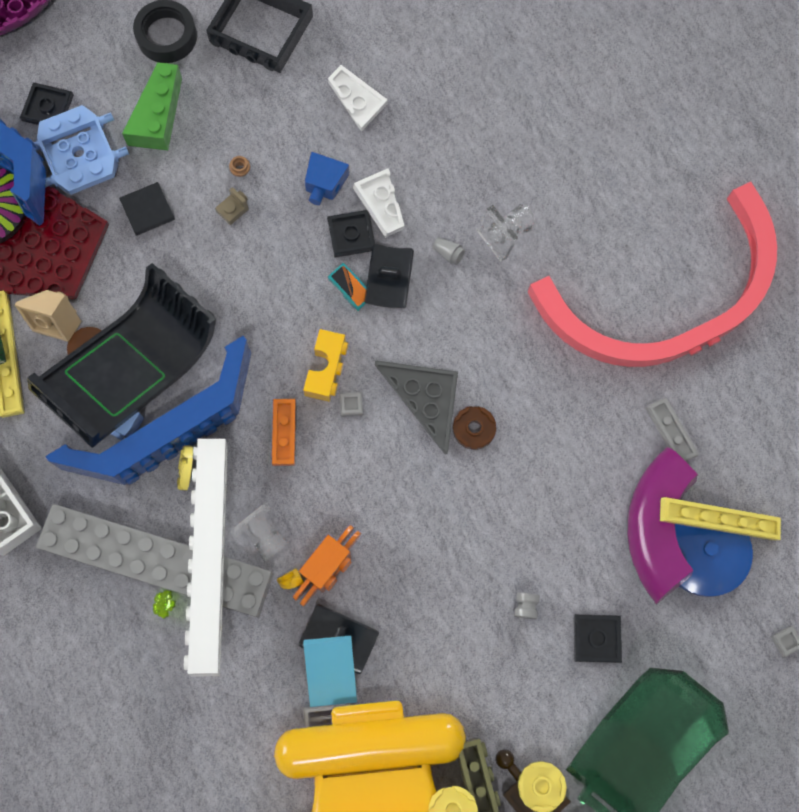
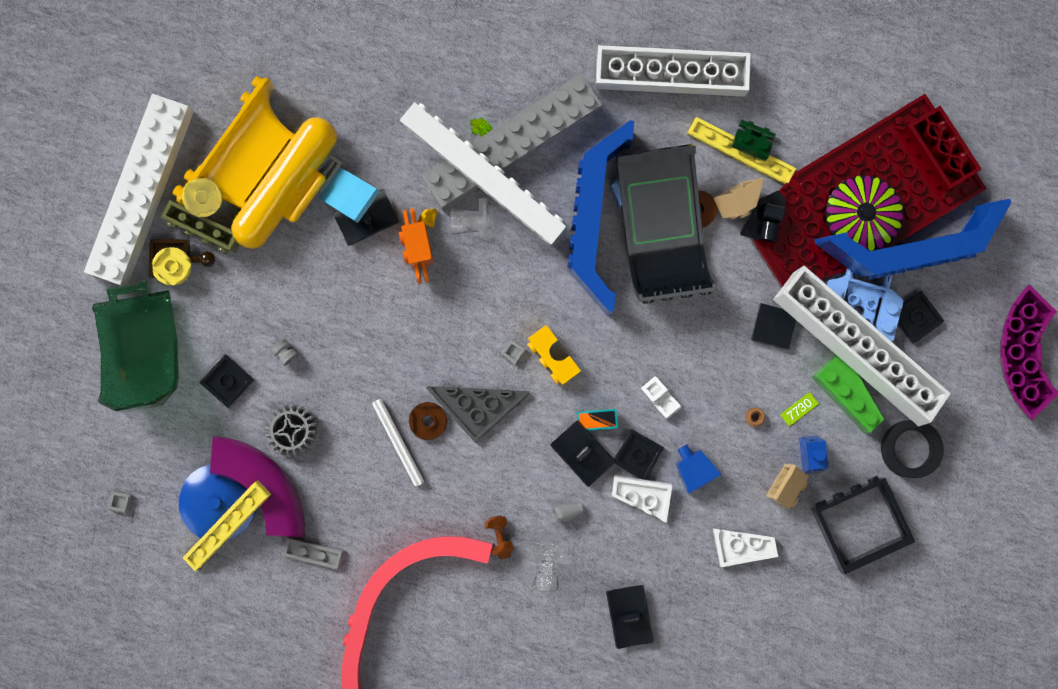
camera: 130 degrees right, 10 degrees up
(55, 277) = (765, 218): none -> black panel
(106, 120) = (862, 346): none -> white brick
(185, 467) = (559, 208): light yellow tile -> none
(203, 139) = (799, 409): none -> lime sticker
(232, 97) = (813, 454): none -> blue torso
(233, 206) = (726, 387): dark tan bracket -> none
(277, 99) = (787, 486): none -> tan slope
(283, 432) = (530, 291): orange plate -> none
(287, 251) = (661, 398): none -> white slope
(488, 138) = (629, 616): none -> black shield
(507, 297) = (504, 547): none -> dark orange piece
(515, 438) = (398, 442): none -> white axle
(597, 544) = (274, 434): none -> light grey gear

